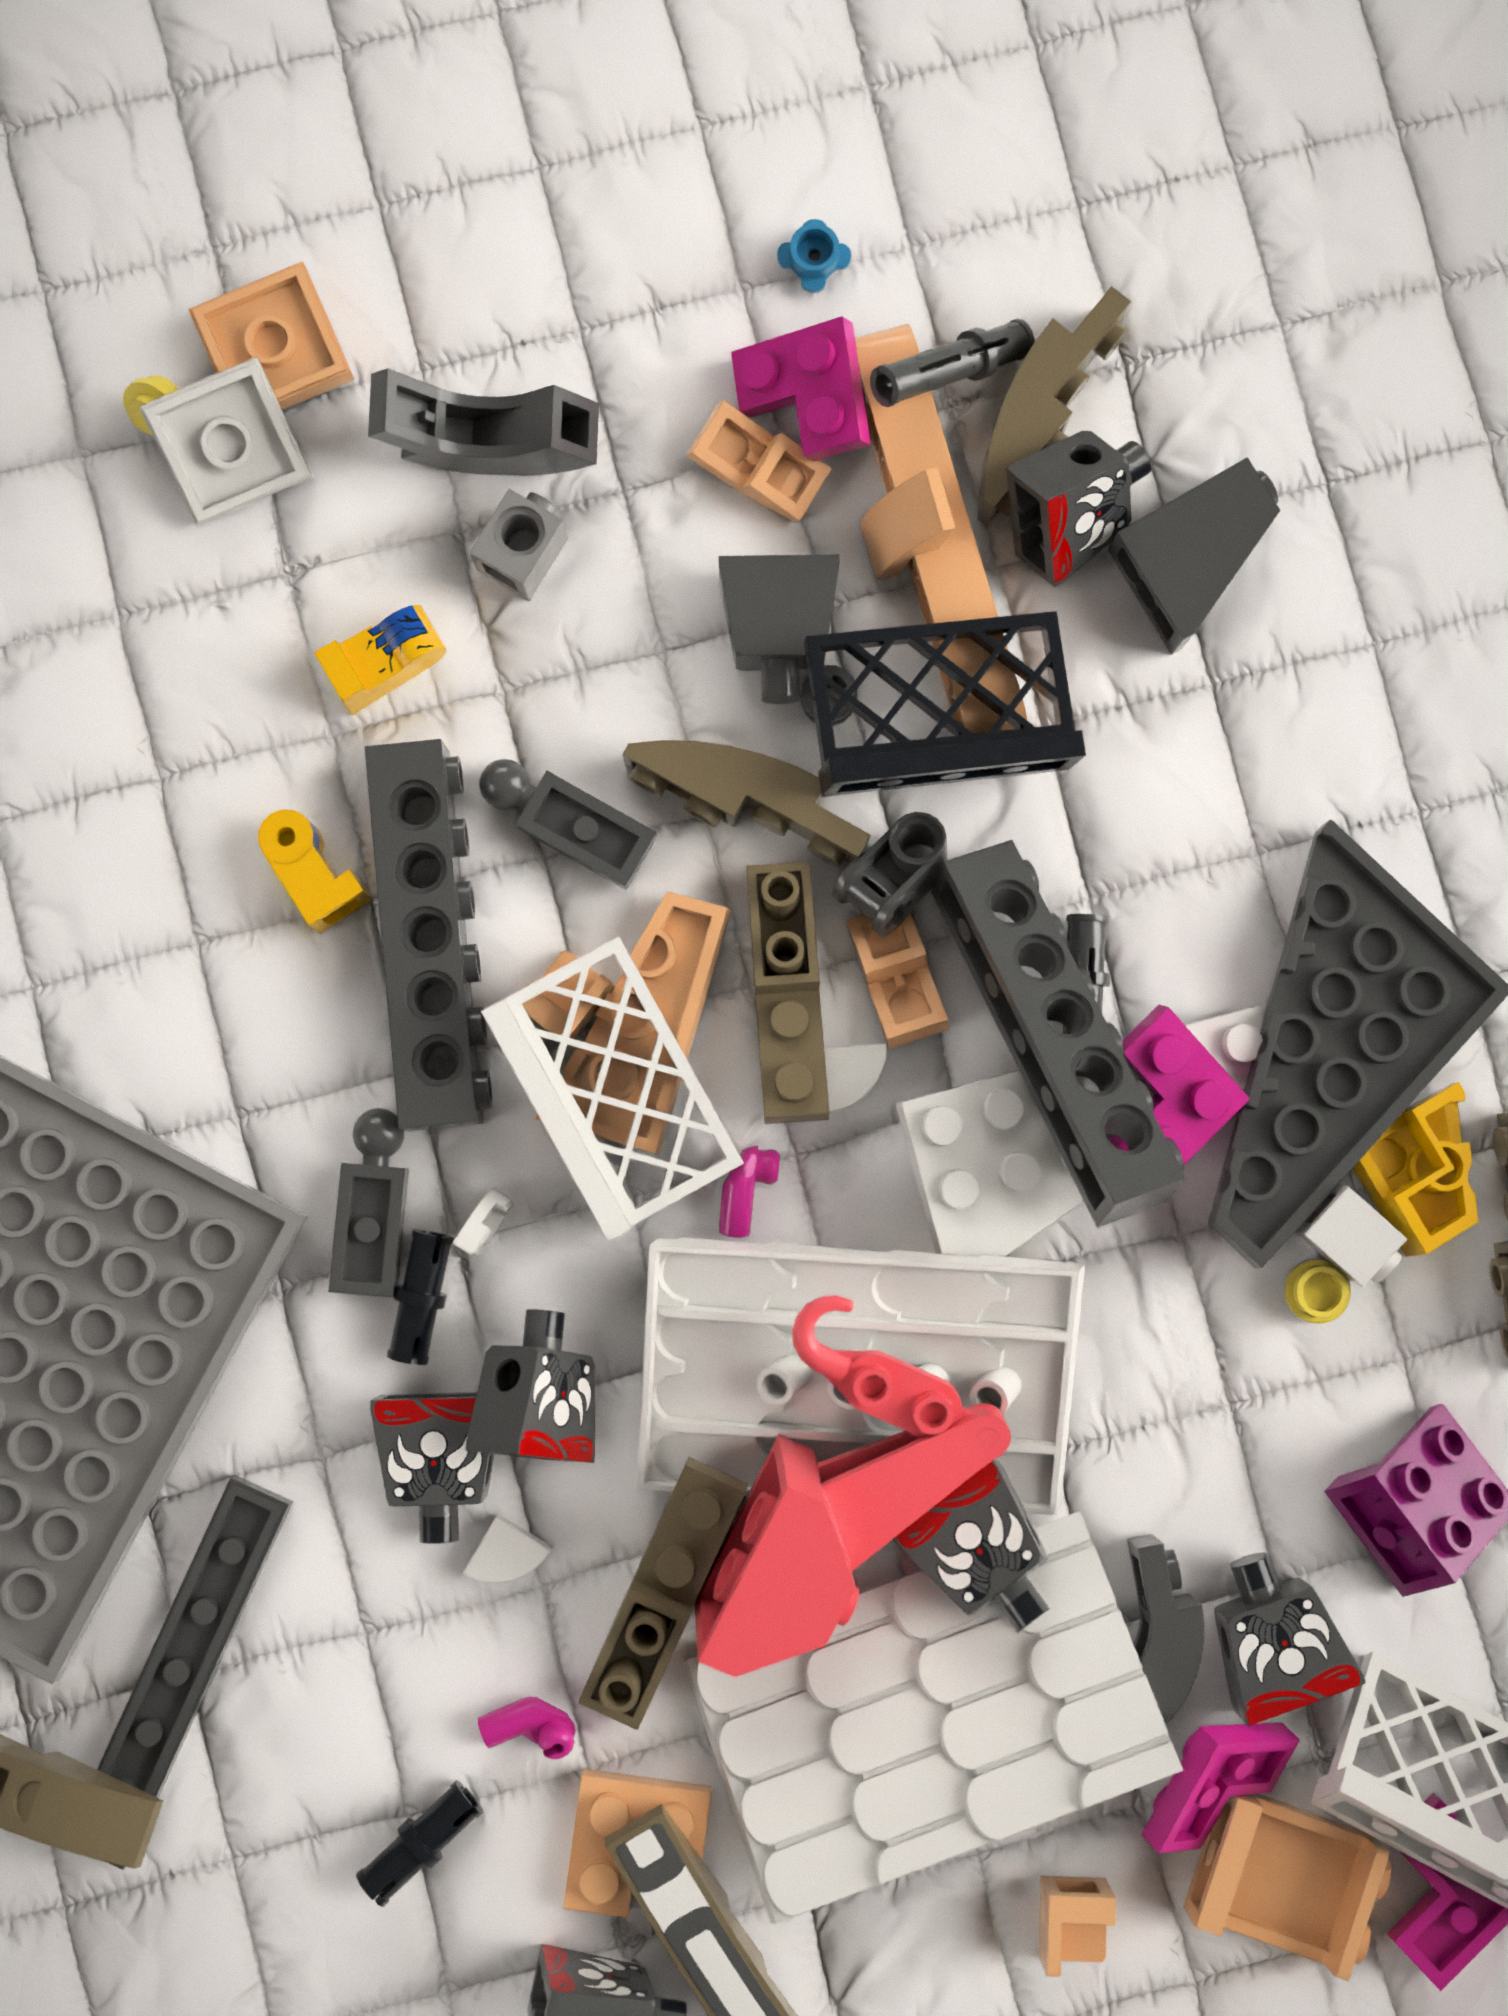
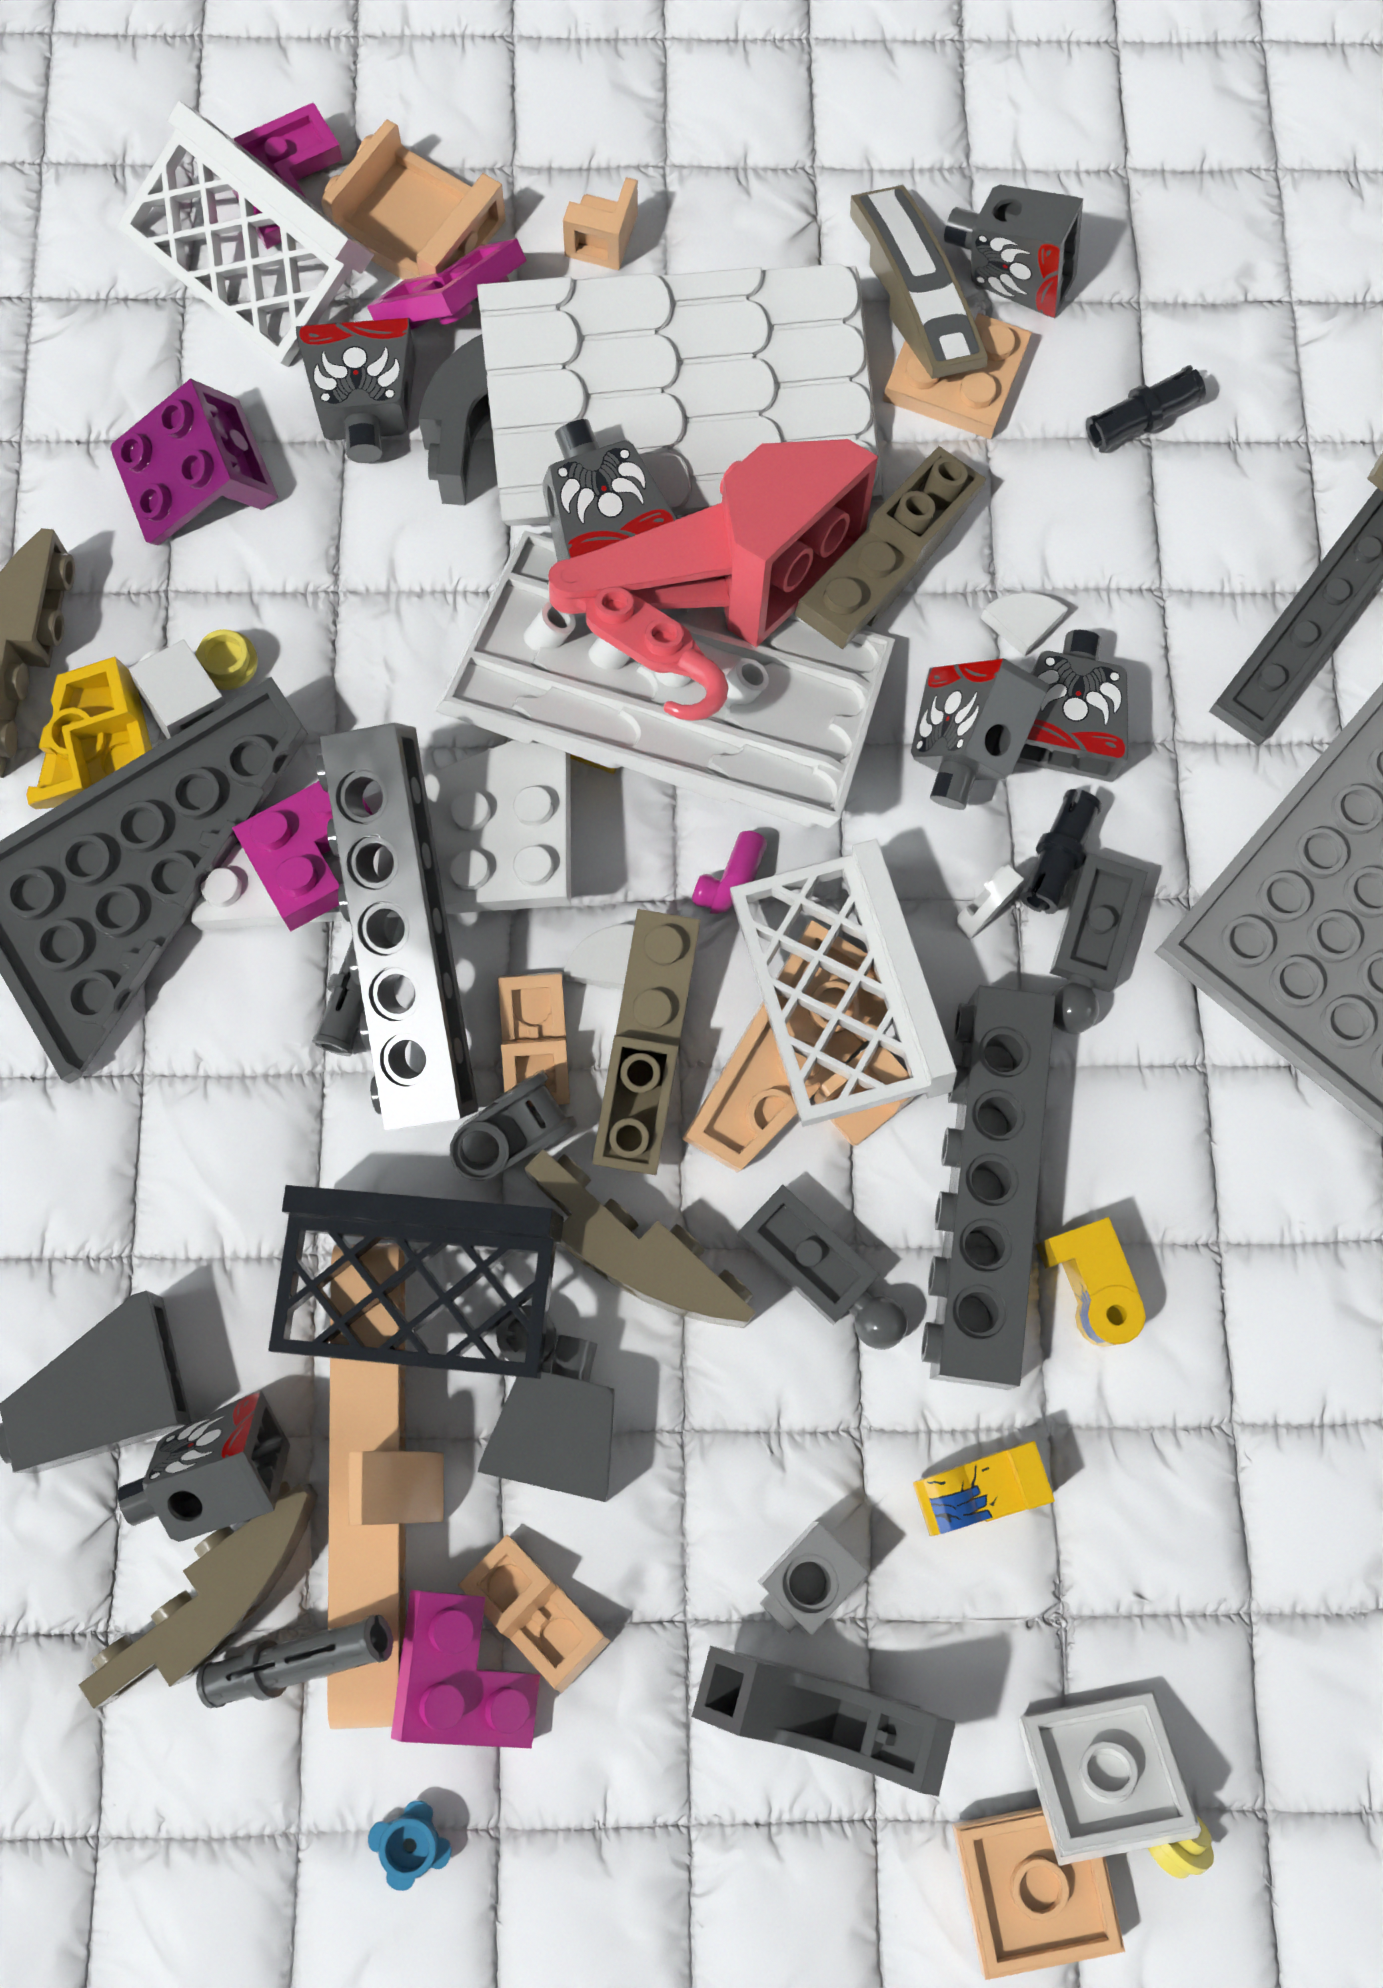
camera: 170 degrees left, 10 degrees down
(533, 1719) = (1026, 481): dark pink arm -> none

